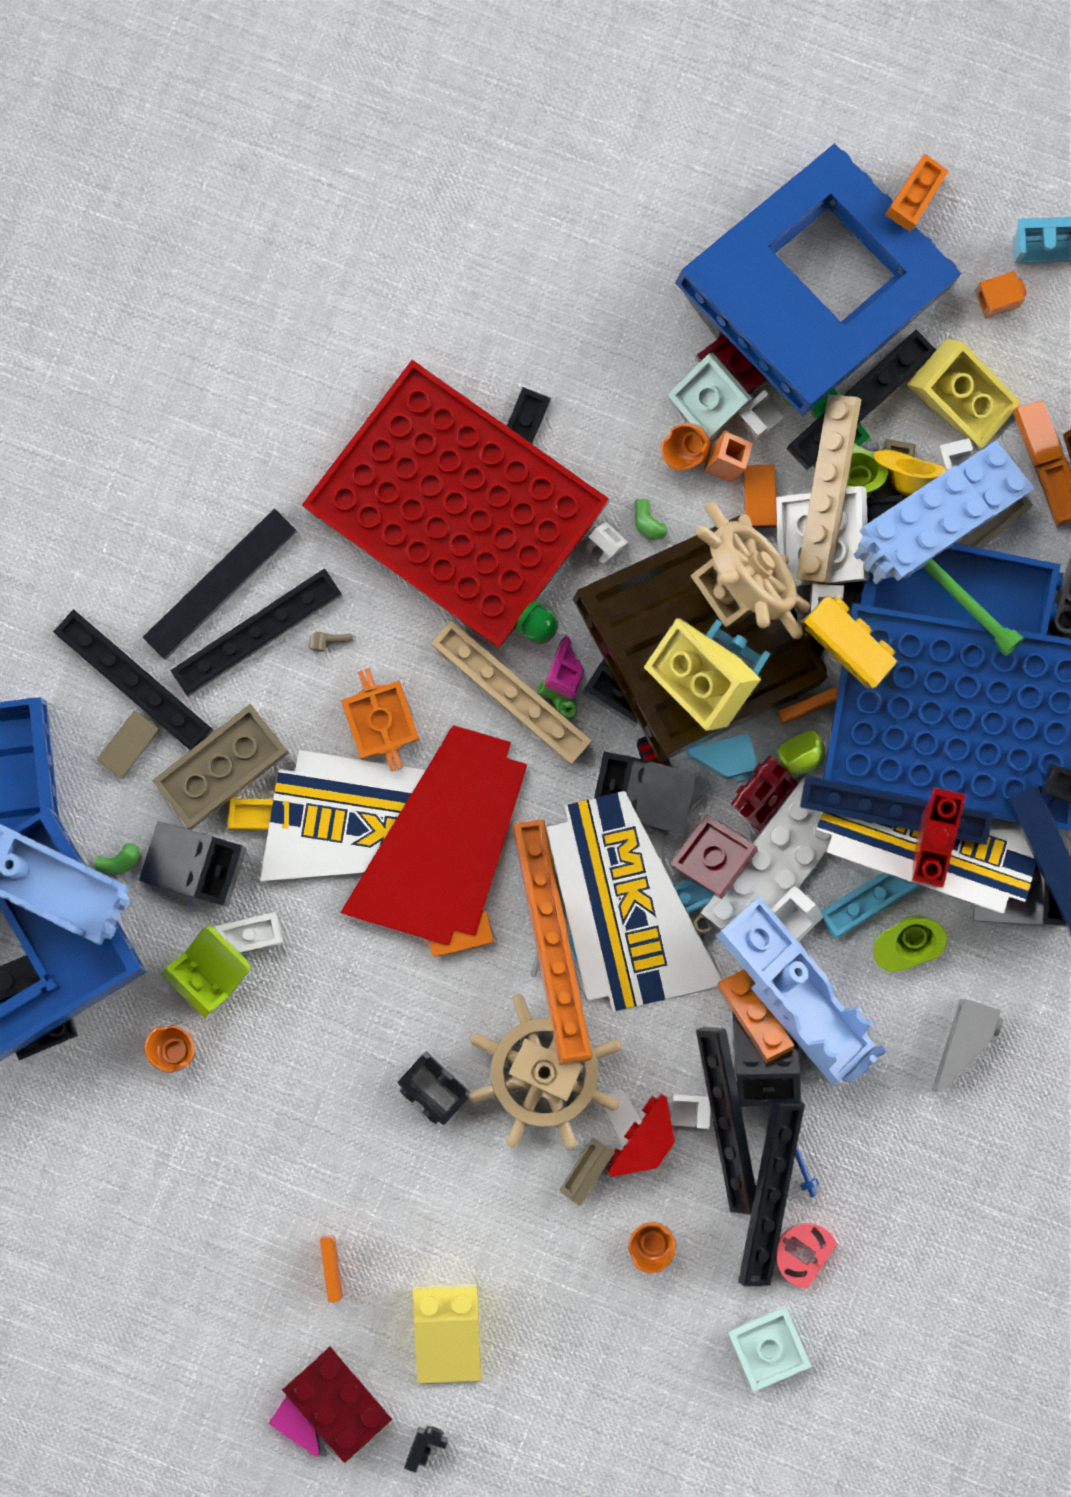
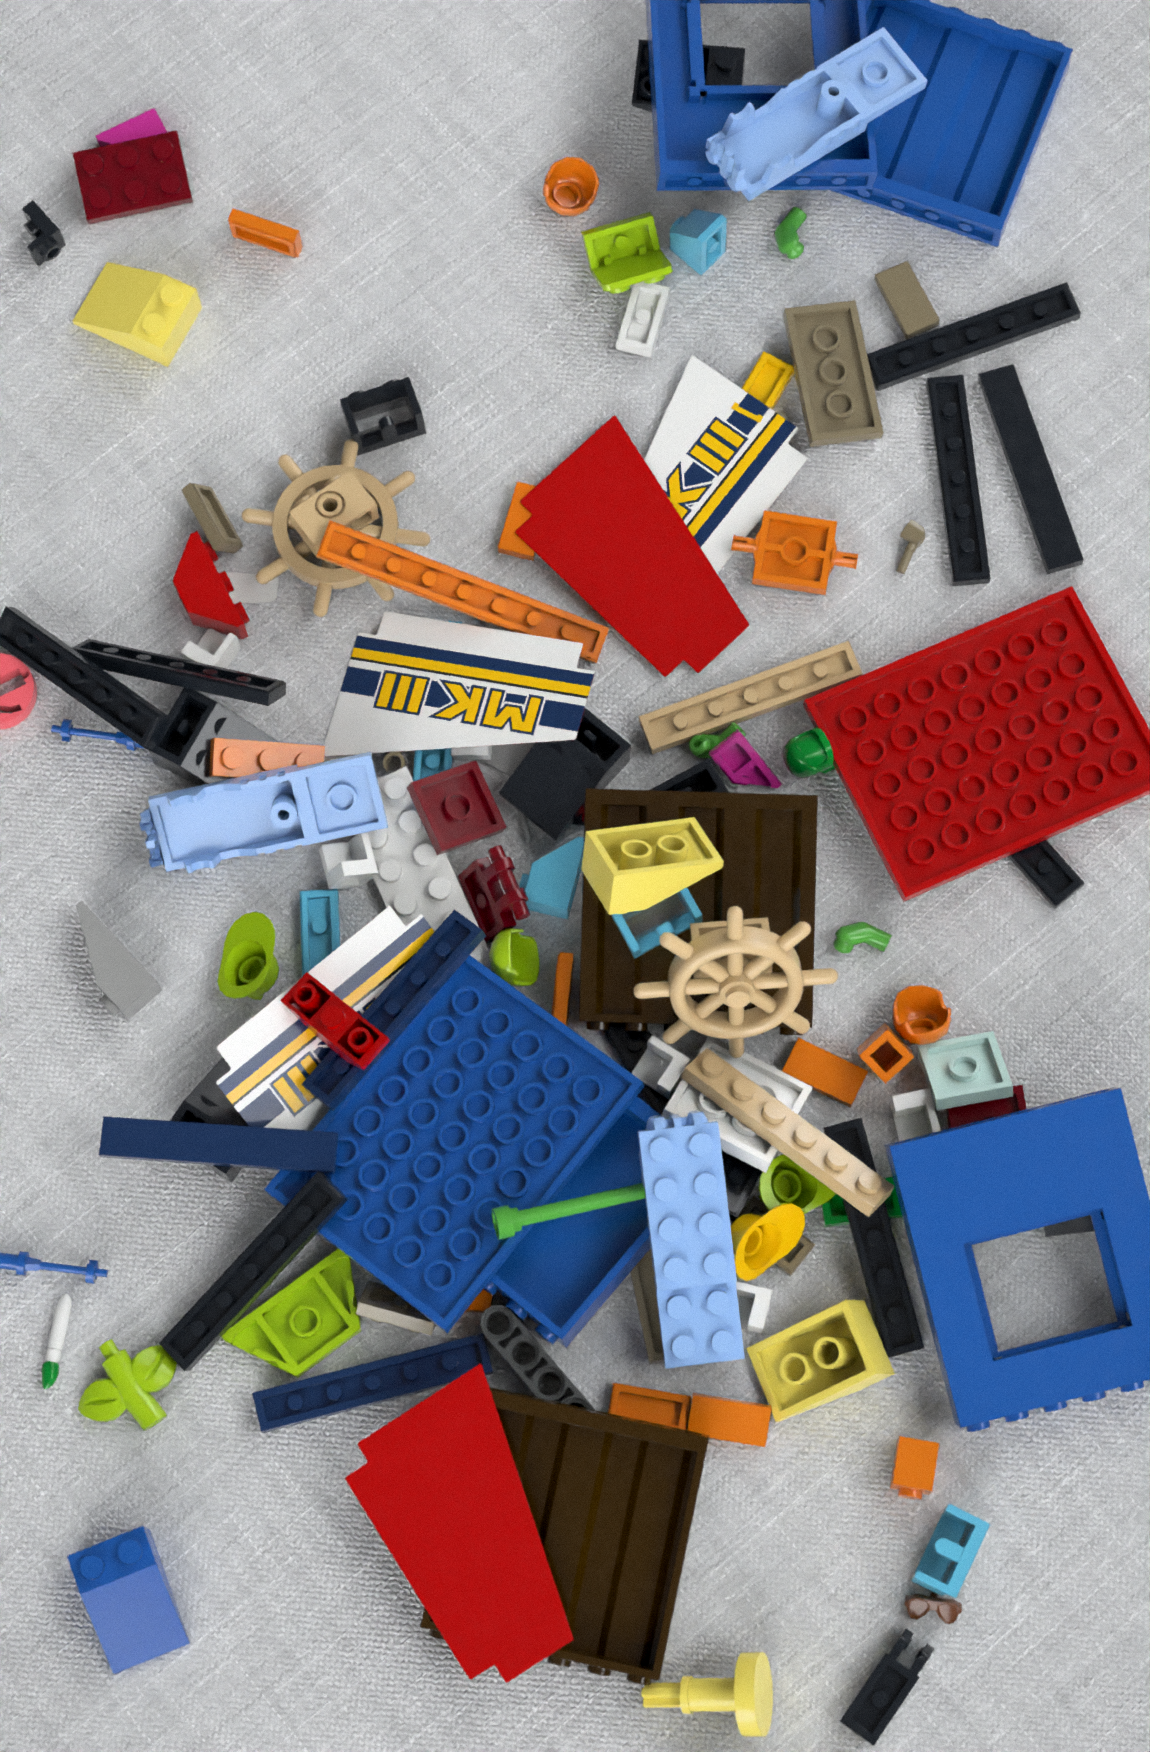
camera: 120 degrees right, 10 degrees down
(162, 927) = (699, 239): none -> medium azure slope
(192, 863) = (743, 299): black slope -> none
(608, 540) = (861, 880): white tile -> none
(652, 1247) = (98, 540): orange hair -> none
(849, 641) = (599, 1042): yellow slope -> none
(917, 192) = (1084, 1430): orange plate -> none

